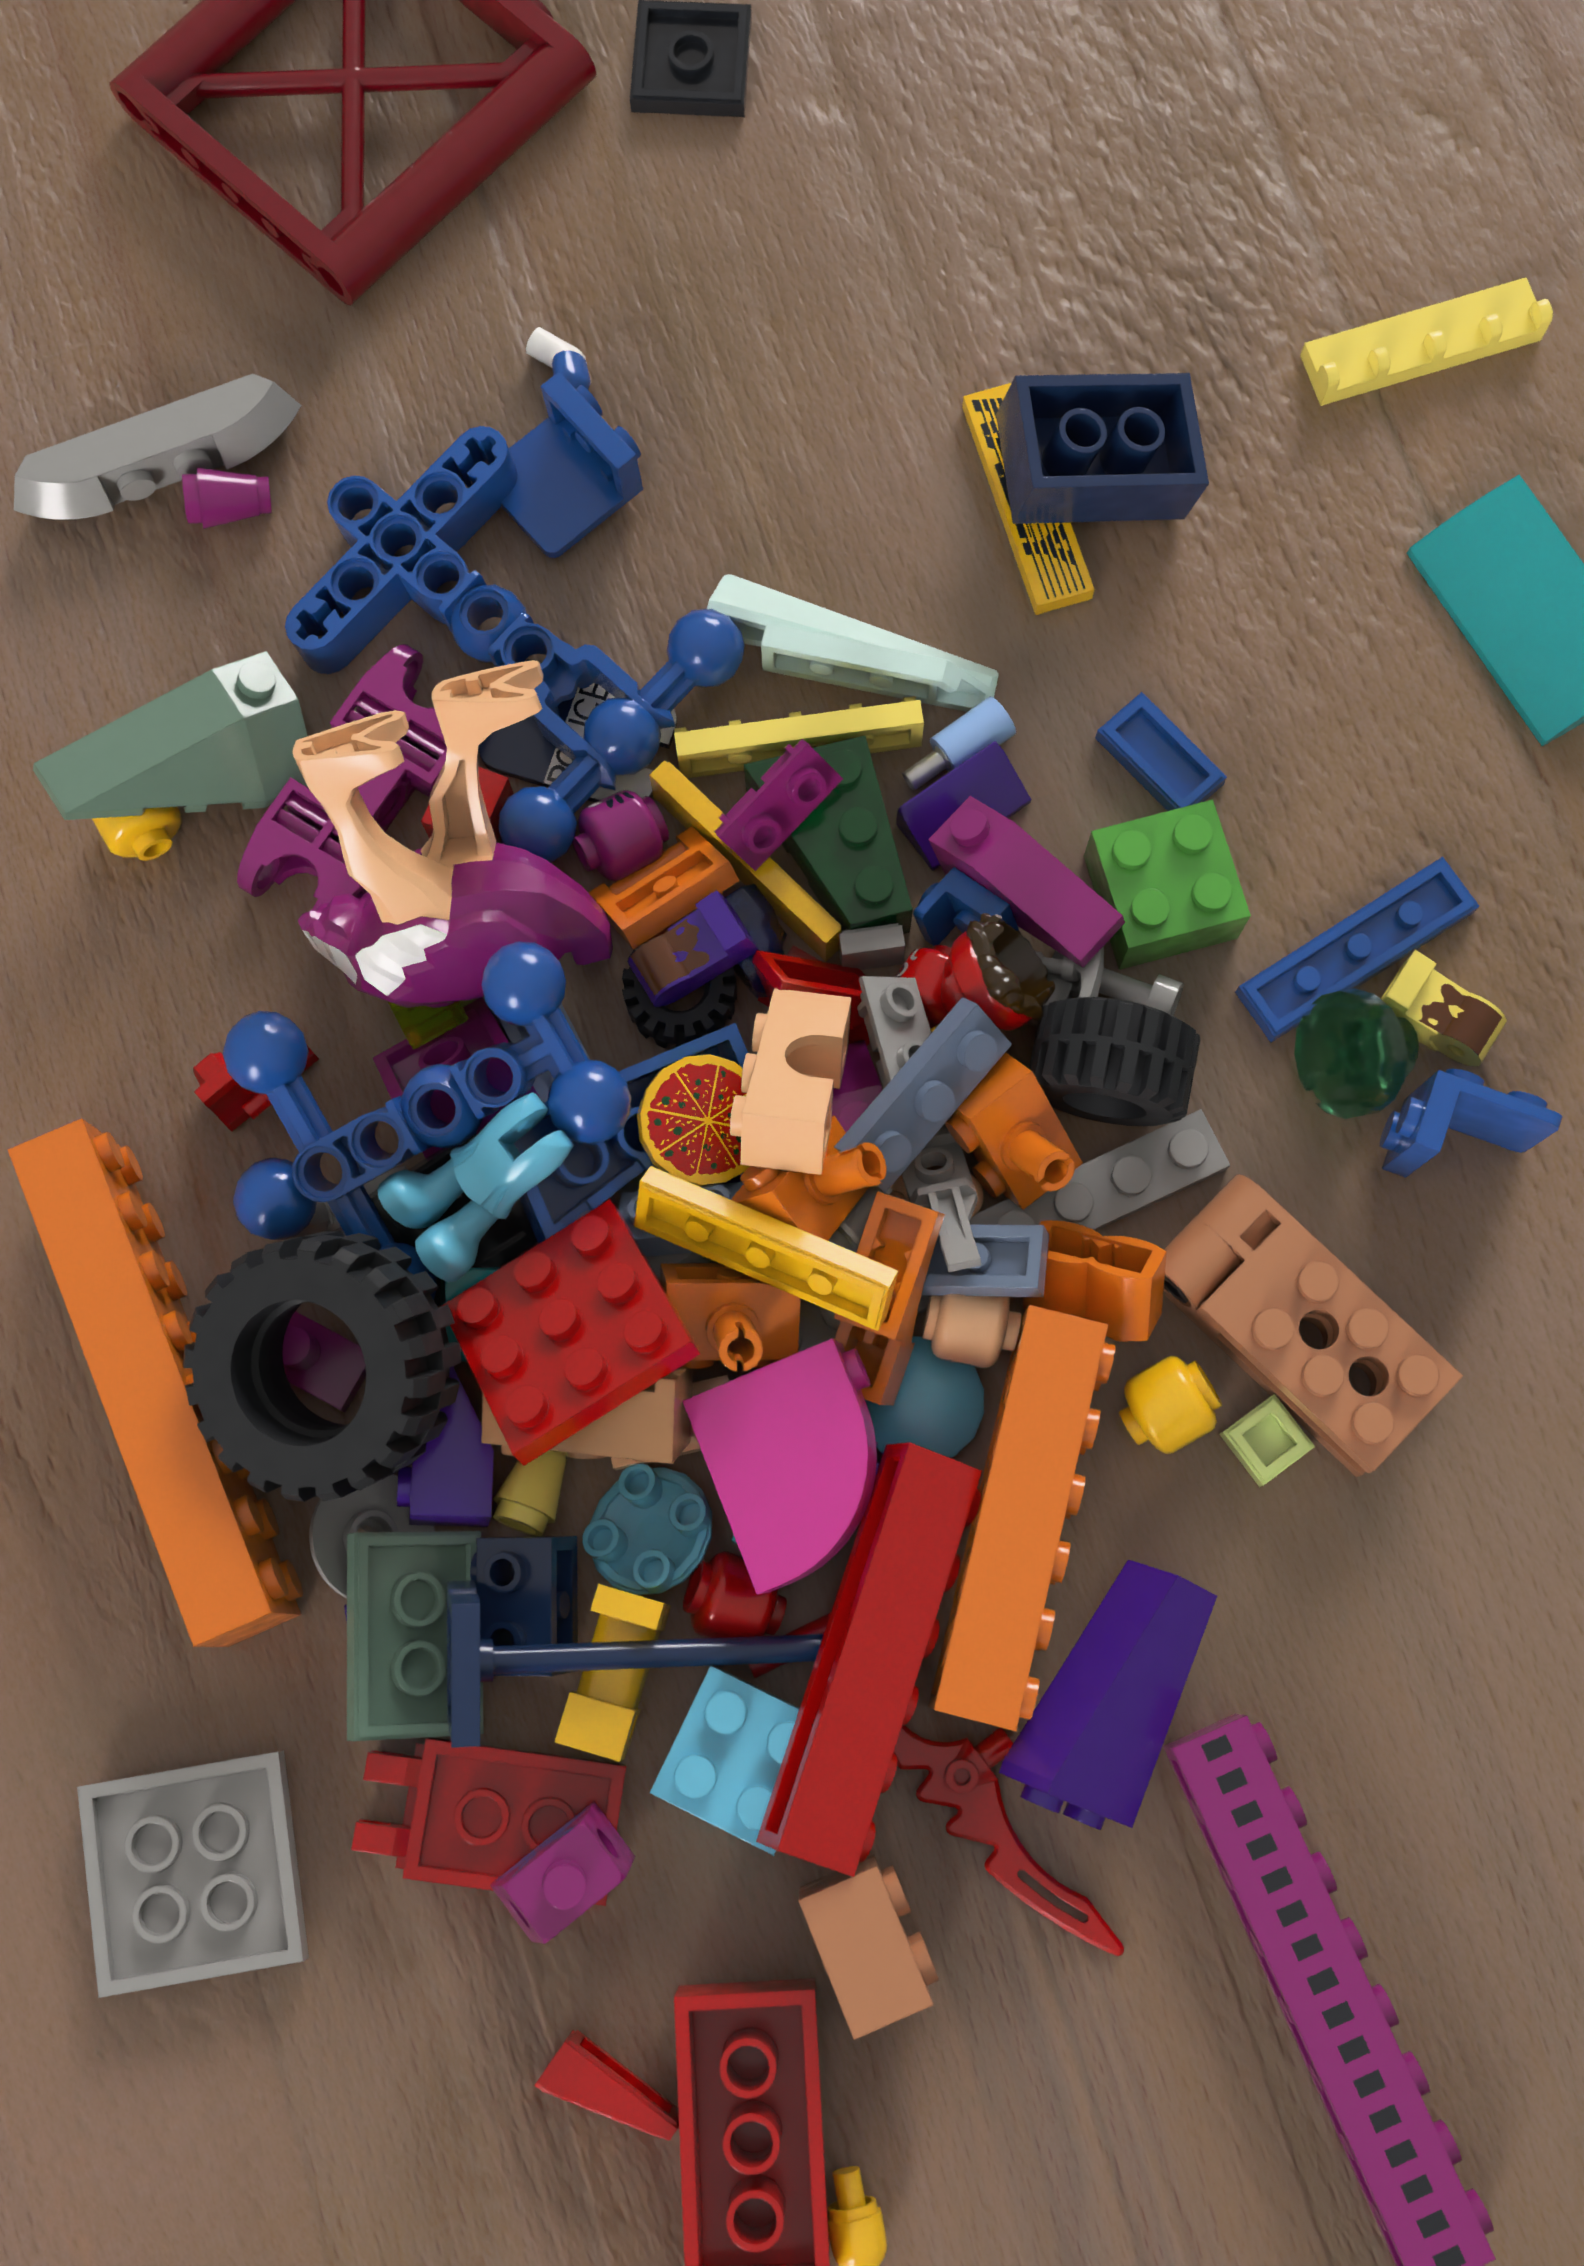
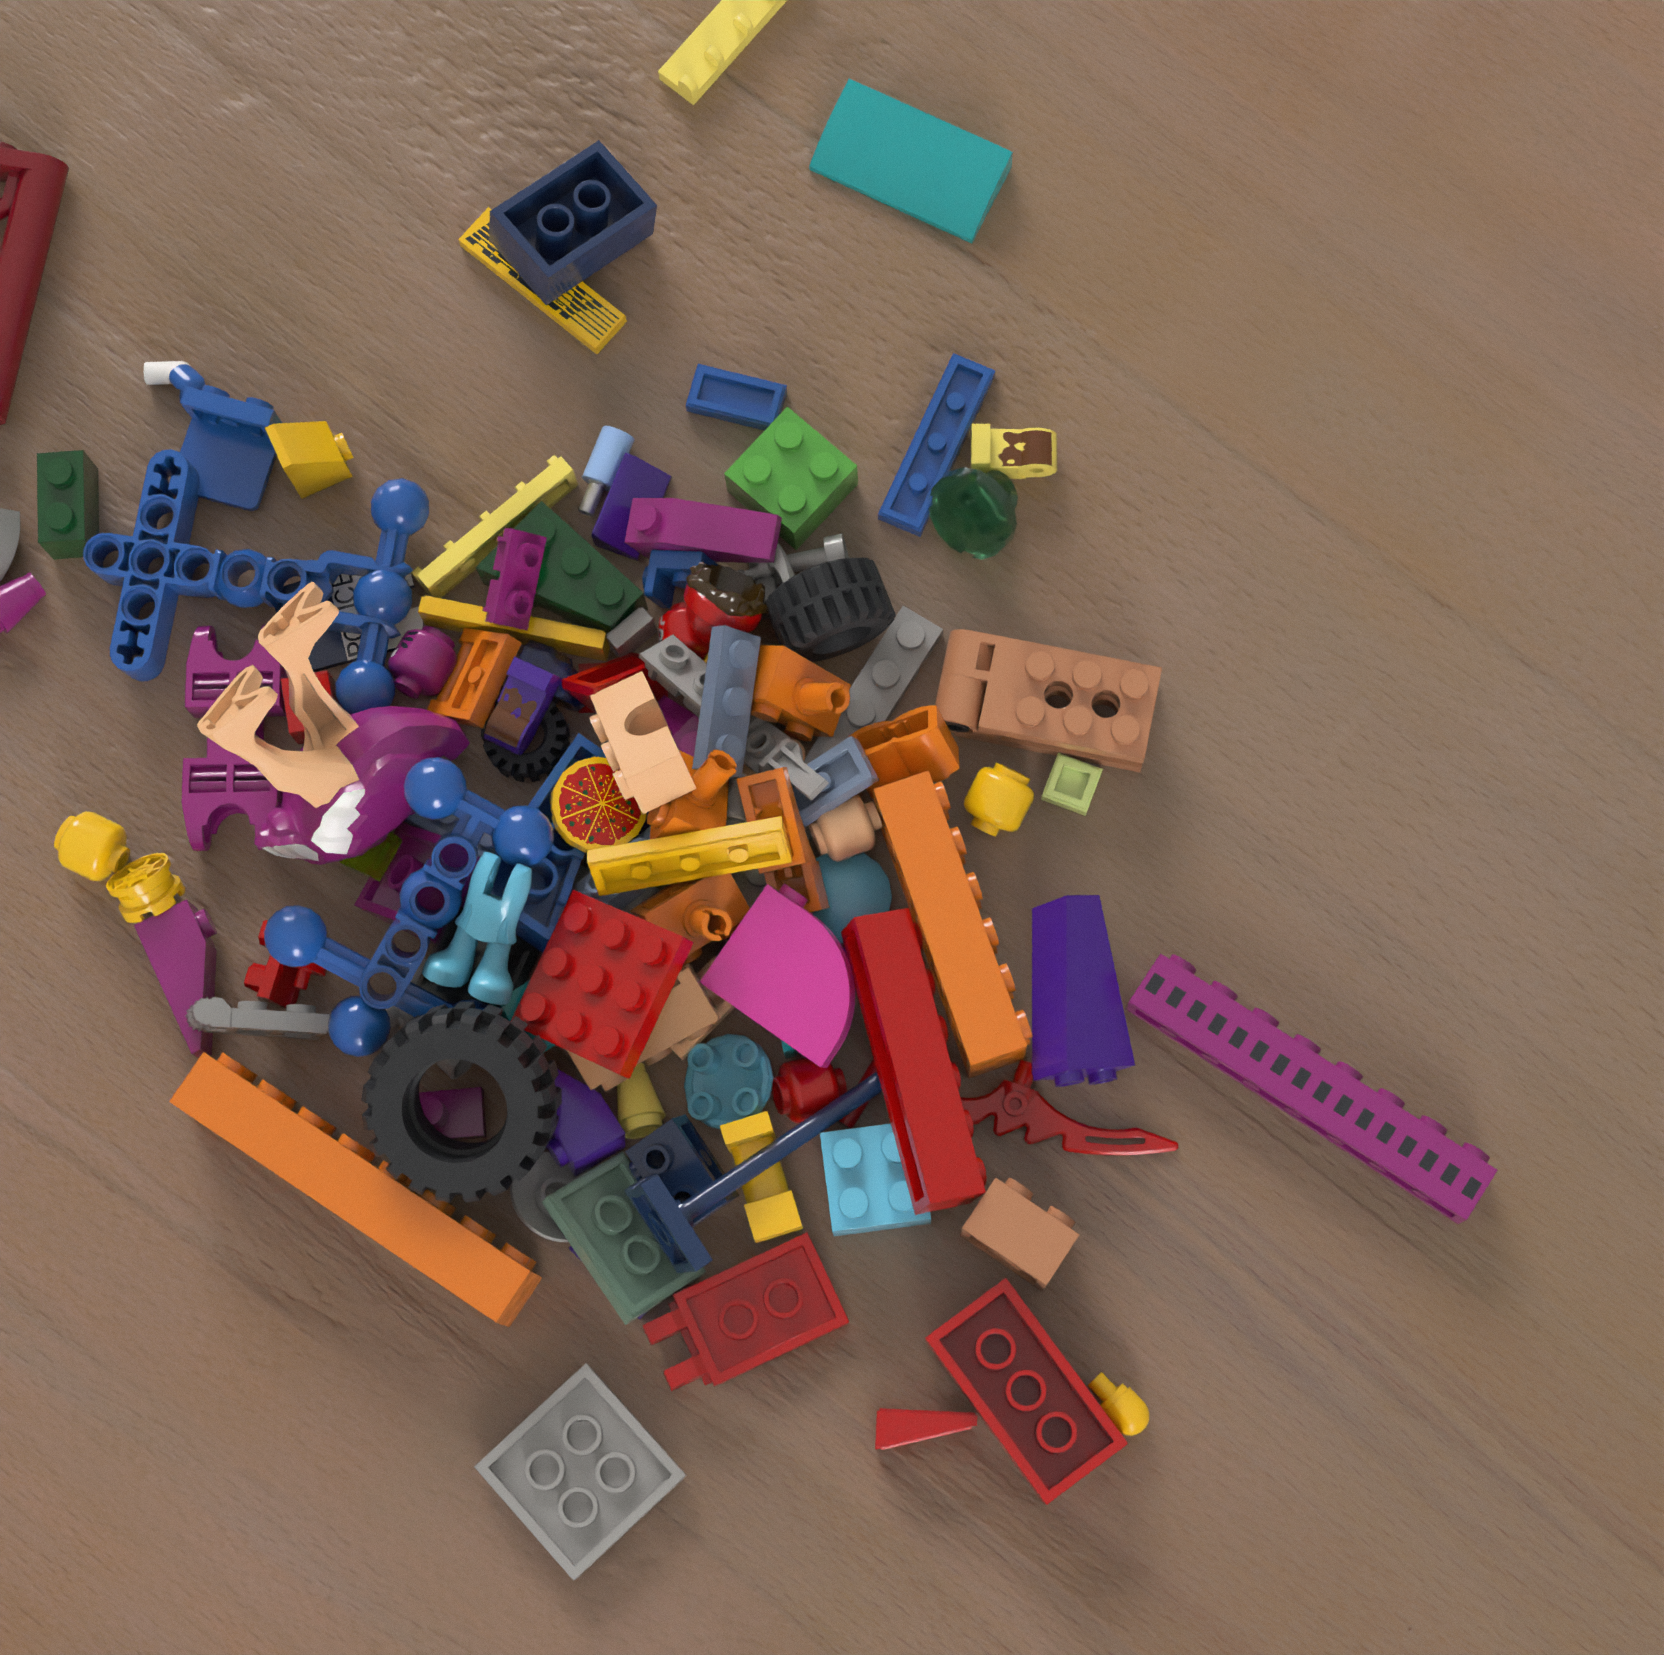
camera: 30 degrees left, 0 degrees up
(143, 1009) = (184, 963): none -> magenta slope
(157, 893) = (145, 887): none -> yellow wheel
(173, 1116) = (254, 1019): none -> light grey hinge
(193, 747) = (112, 772): sand green wedge -> none
(355, 423) = (66, 502): none -> dark green brick
(565, 1875) = (811, 1317): magenta torso -> none
(645, 530) = (310, 455): none -> yellow slope
(691, 58) = (124, 118): black tile -> none
(845, 652) = (490, 453): light aqua wedge -> none
(1463, 1104) = (1060, 502): blue bracket -> none

